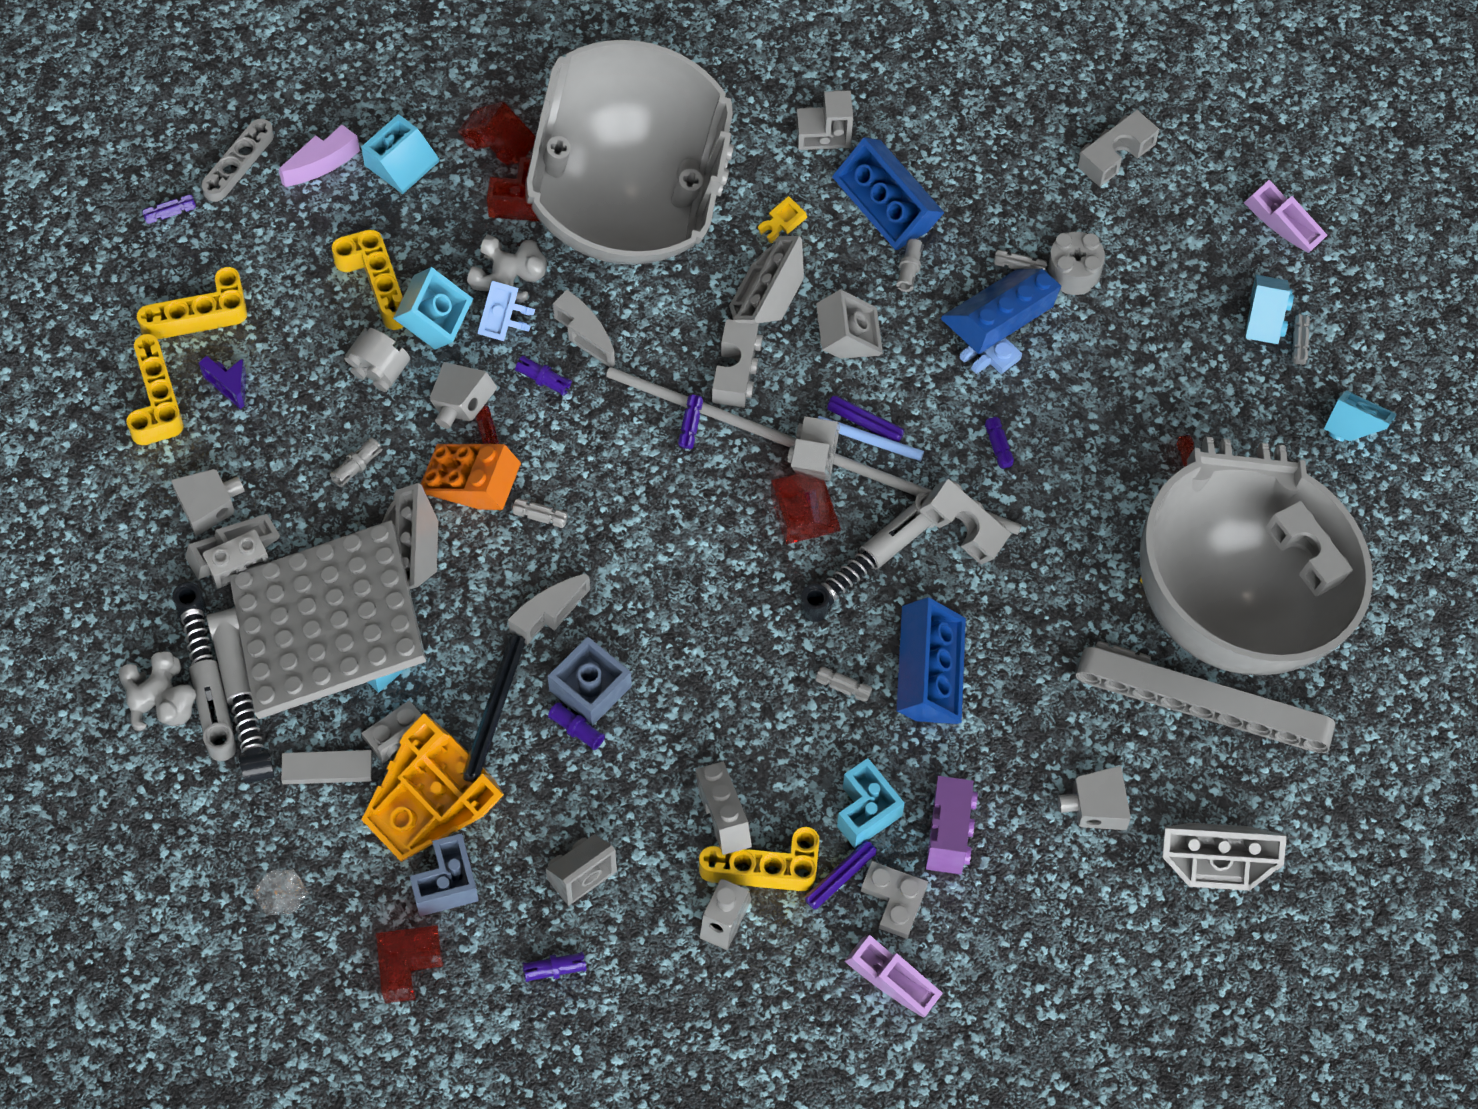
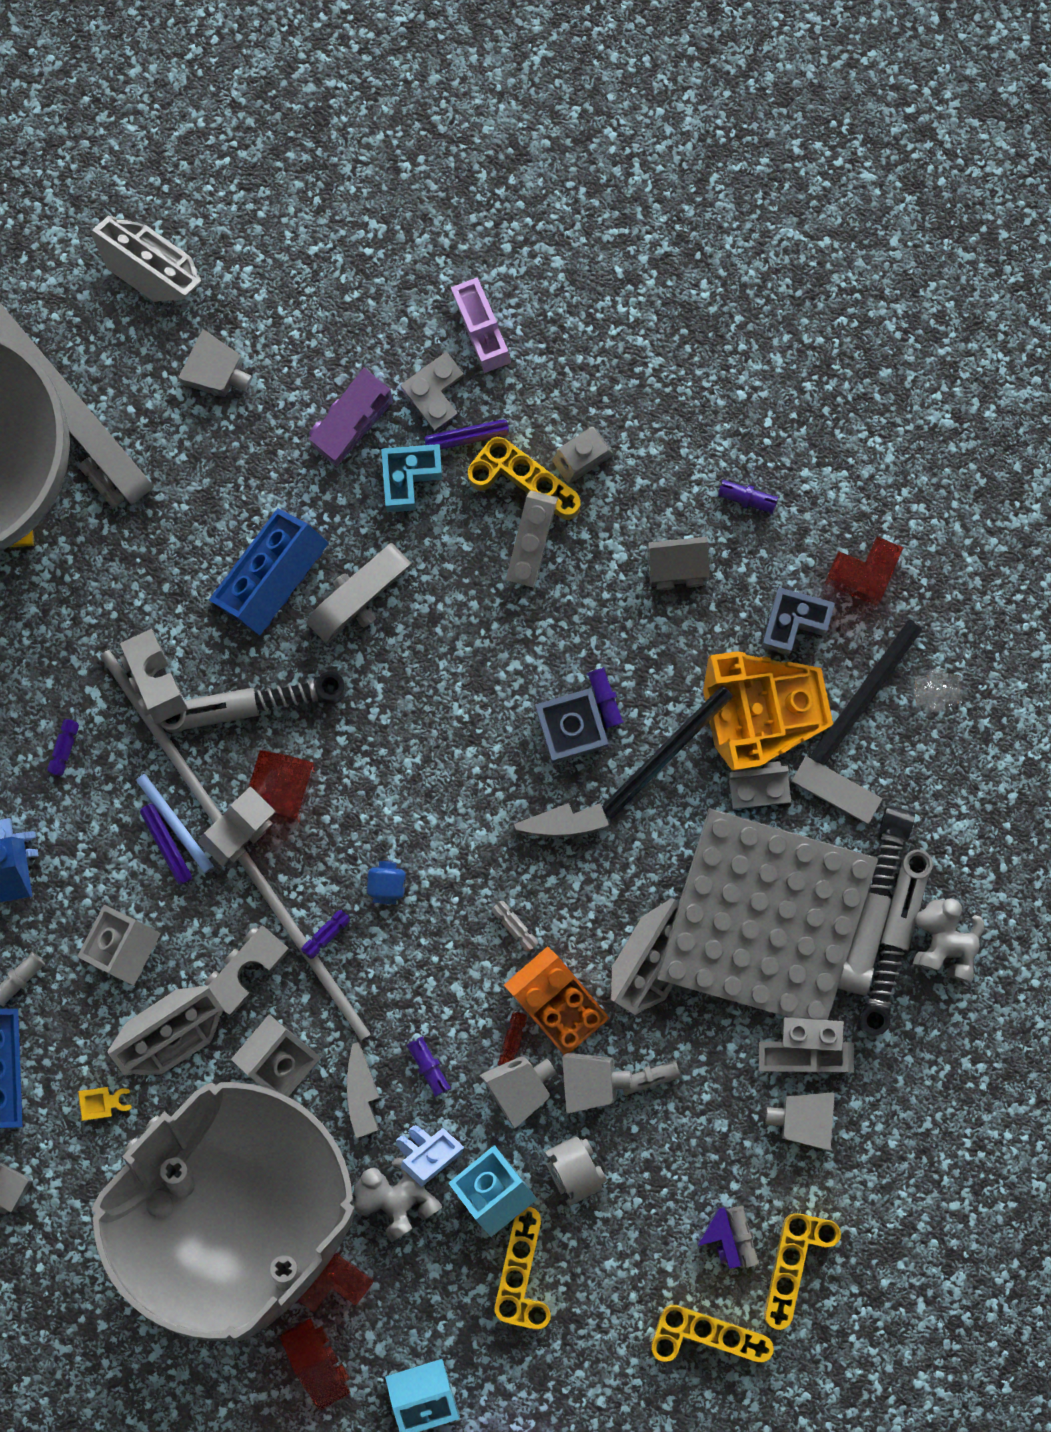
camera: 145 degrees left, 20 degrees up
(211, 391) = (742, 1236): none -> light grey pin
(346, 862) = (866, 692): none -> black axle
(403, 429) = (591, 1081): none -> light grey torso
(667, 483) = (386, 883): none -> blue head
(670, 315) = (275, 1057): none -> light grey slope
(842, 685) = (357, 592): none -> light grey beam

